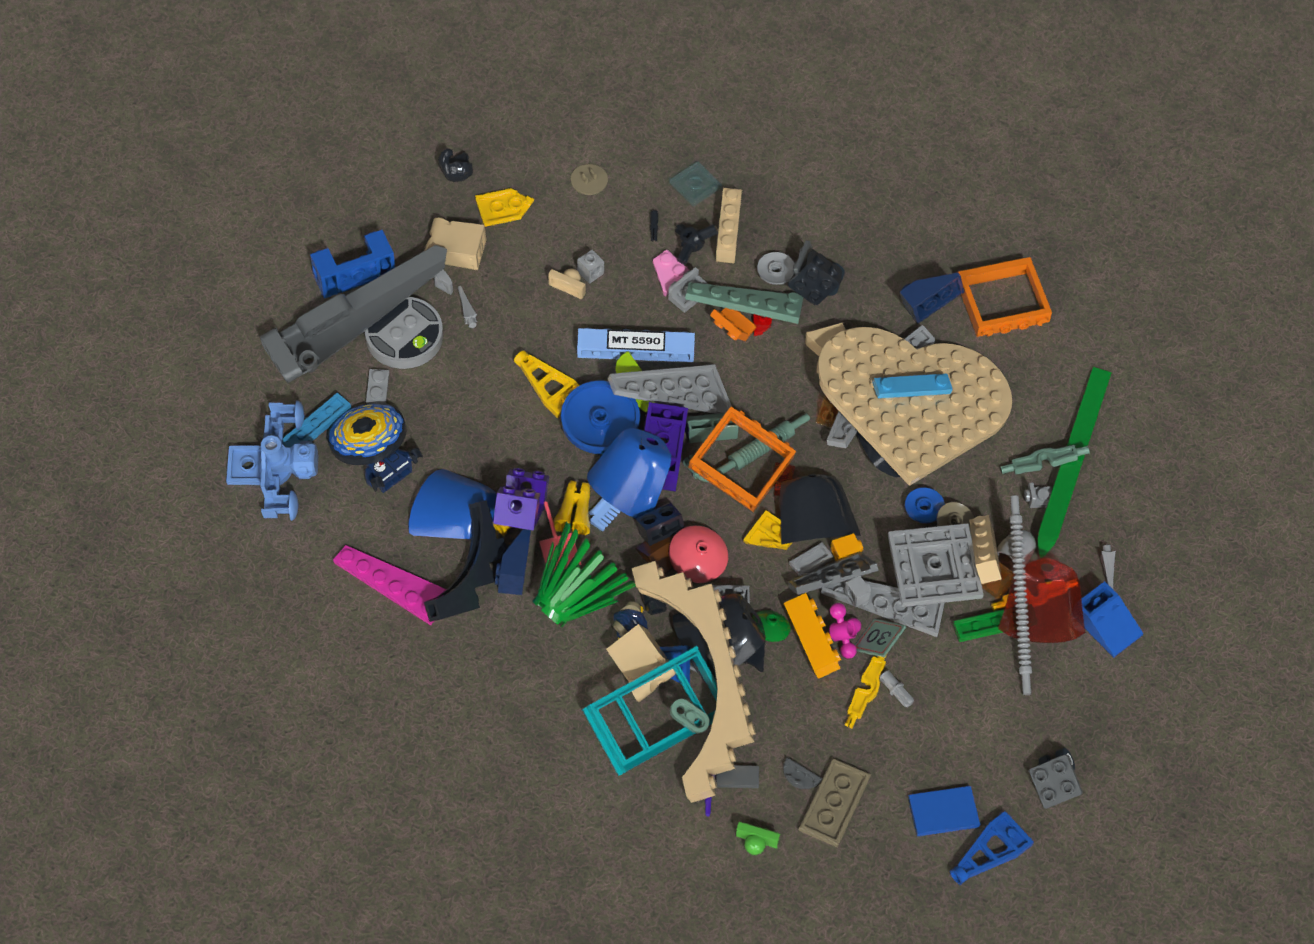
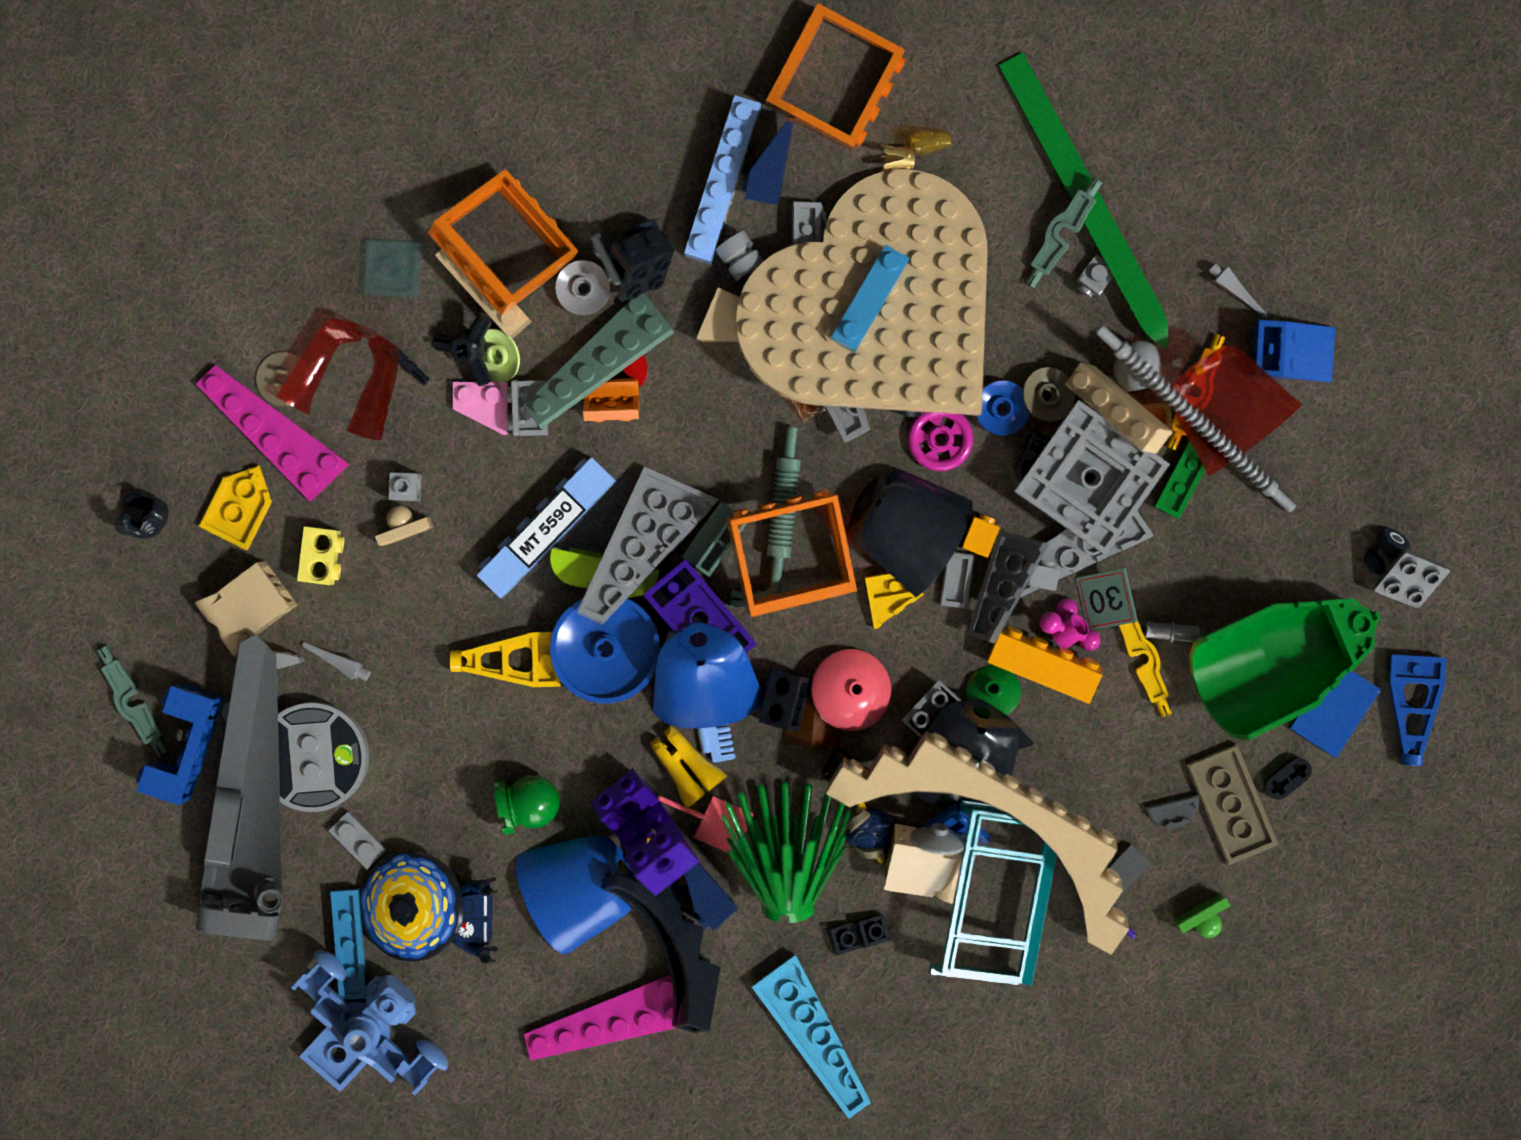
camera: 40 degrees left, 30 degrees up
(356, 226) = (124, 688): none -> sand green piece
(479, 443) = (527, 803): none -> green tile
(491, 673) = (802, 1017): none -> medium azure wing
(519, 254) = (312, 554): none -> light yellow brick
(557, 204) = (289, 447): none -> dark pink wing
(564, 668) = (858, 934): none -> black slope
(607, 184) = (376, 397): none -> clear red piece
(664, 642) = (937, 839): none -> light grey dish
(689, 714) = (1032, 880): sand green plate -> none
(703, 257) = (501, 367): none -> yellowish green dish
(733, 228) = (474, 267): none -> orange window
(869, 317) = (739, 255): none -> light grey wheel
(877, 505) = (957, 454): none -> dark pink plate
(880, 814) = (1291, 783): none -> black beam
(887, 289) = (723, 180): none -> light blue brick
(942, 739) = (1279, 662): none -> green windscreen
(999, 360) = (899, 157): none -> pearl gold piece
(1020, 364) = (929, 141): none -> clear yellow cone

